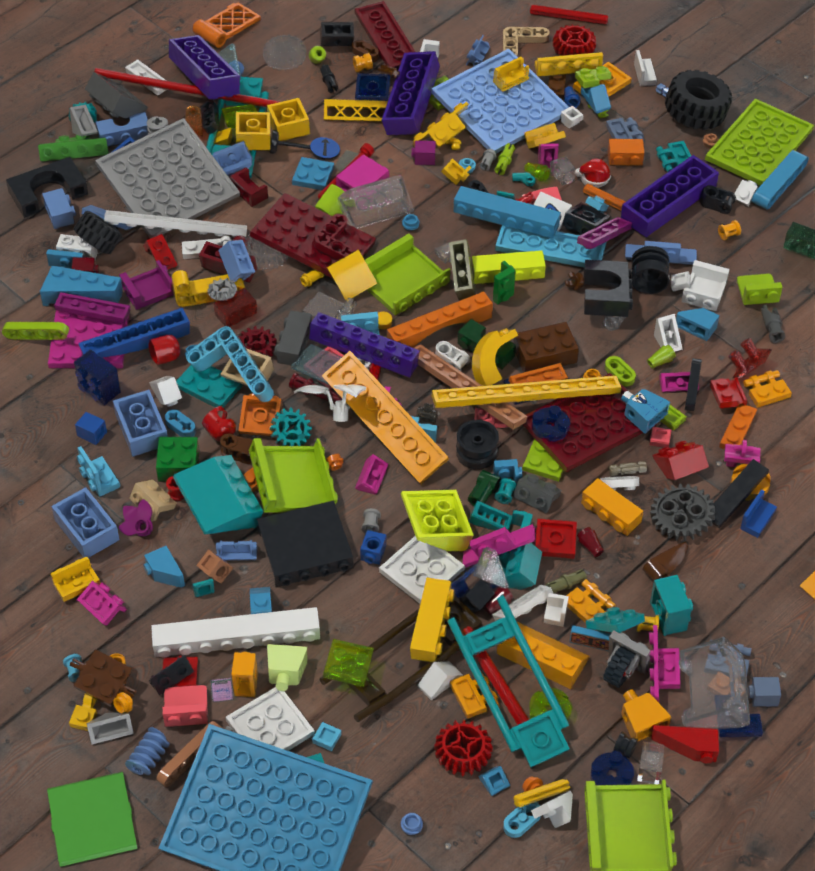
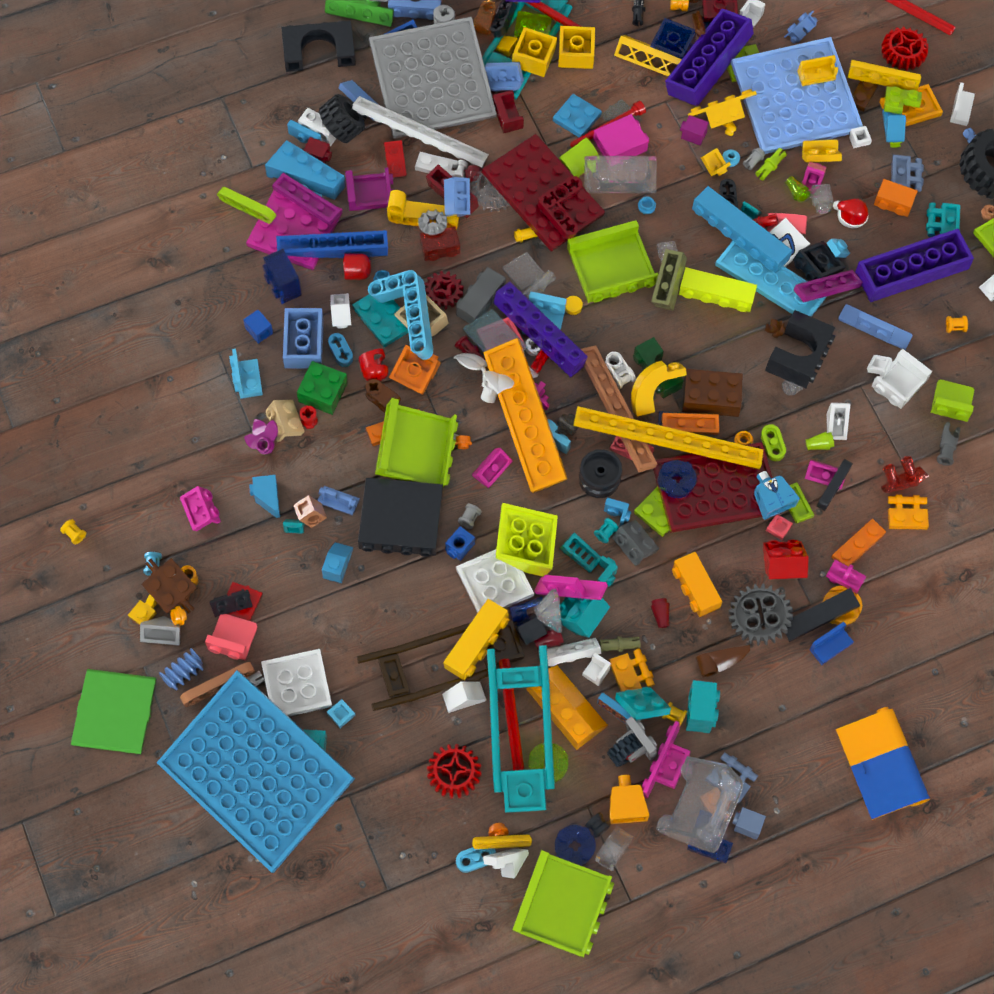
camera: 20 degrees right, 15 degrees up
(58, 208) = (319, 75): medium blue brick -> none
(74, 578) = (184, 476): yellow bracket -> none
(85, 523) = (214, 424): medium blue brick -> none
(219, 495) = (341, 441): teal slope -> none
(221, 689) = (270, 632): clear light blue tile -> none
(235, 632) = (303, 582): white brick -> none
(244, 674) = (292, 628): light orange brick -> none
(286, 665) = (332, 632): yellowish green torso -> none
(287, 420) = (440, 401): teal gear -> none
(320, 147) = (598, 89): piece -> none
(348, 662) = (386, 652): clear neon green plate -> none
(352, 275) = (561, 248): yellow slope -> none
(411, 824) = (379, 824): medium blue plate -> none
(412, 332) = (590, 331): orange arch -> none
(468, 696) = (481, 723): light orange plate -> none
(485, 485) = (591, 517): dark green piece -> none
(494, 780) = (469, 811): dark azure slope -> none
(504, 283) = (703, 309): green bracket -> none
(525, 177) = (782, 192): teal arm -> none
(536, 35) = (850, 21): tan beam -> none
(556, 538) = (630, 596): red plate -> none
(571, 97) = (871, 115): blue cone -> none
(609, 199) = (851, 242): orange axle -> none
(627, 468) = (732, 548): dark tan axle -> none
(627, 482) = (718, 561): white plate -> none
(650, 270) = (852, 344): black wheel -> none
(691, 742) = (659, 846): red slope -> none
(698, 322) = (874, 417): dark azure slope -> none
(715, 199) = (963, 285): black piece -> none
(728, 392) = (866, 504): red plate -> none

